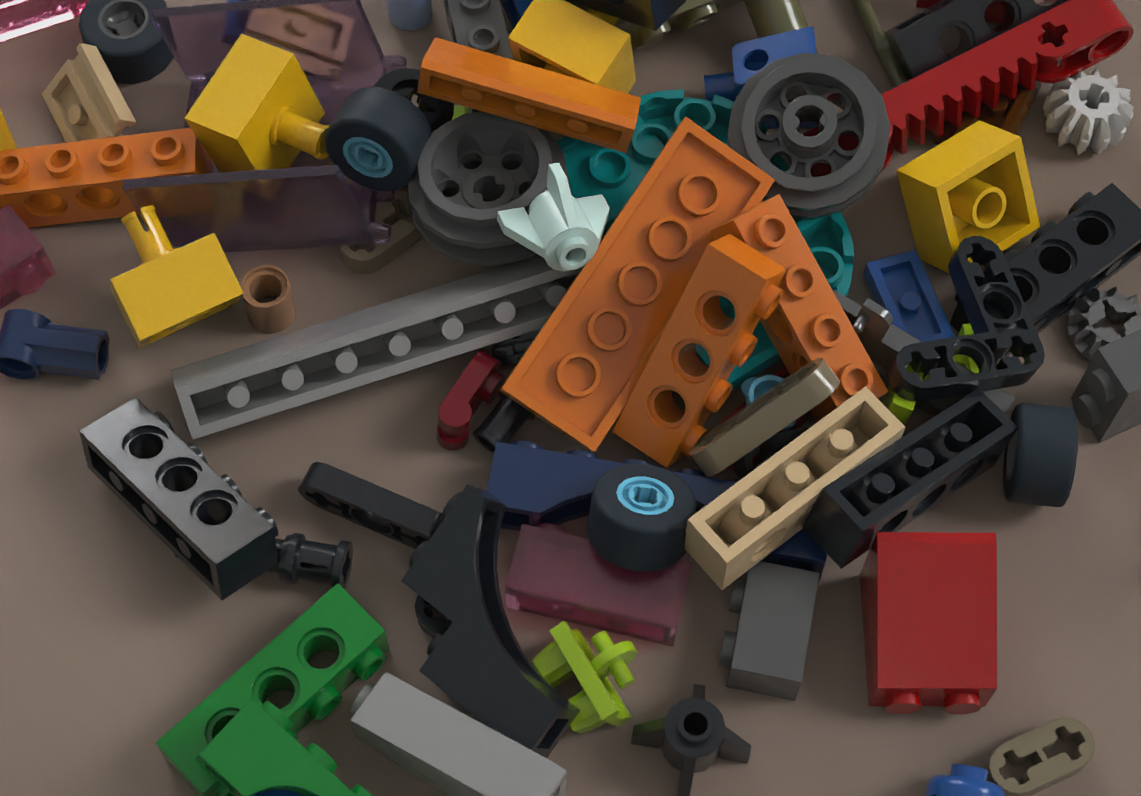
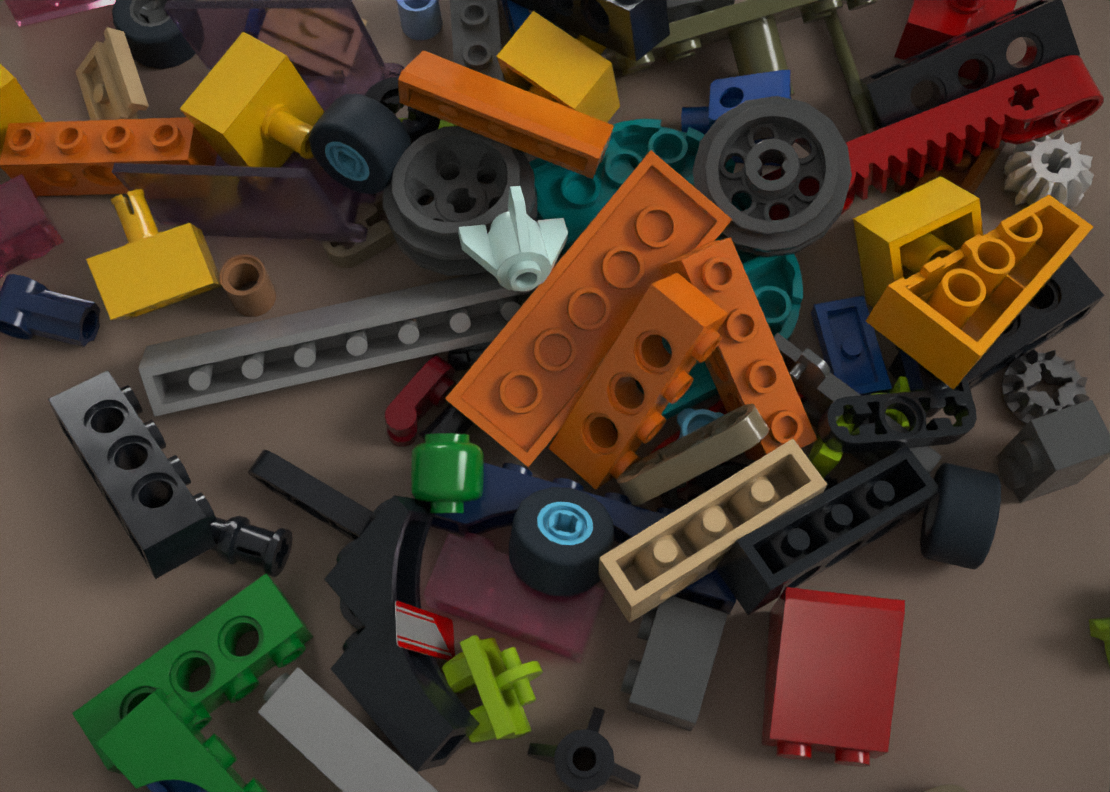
camera: 10 degrees right, 5 degrees up
(511, 624) = (424, 631): none -> sticker
(515, 459) = (447, 472): none -> green head
(1024, 234) = (970, 297): none -> light orange wedge

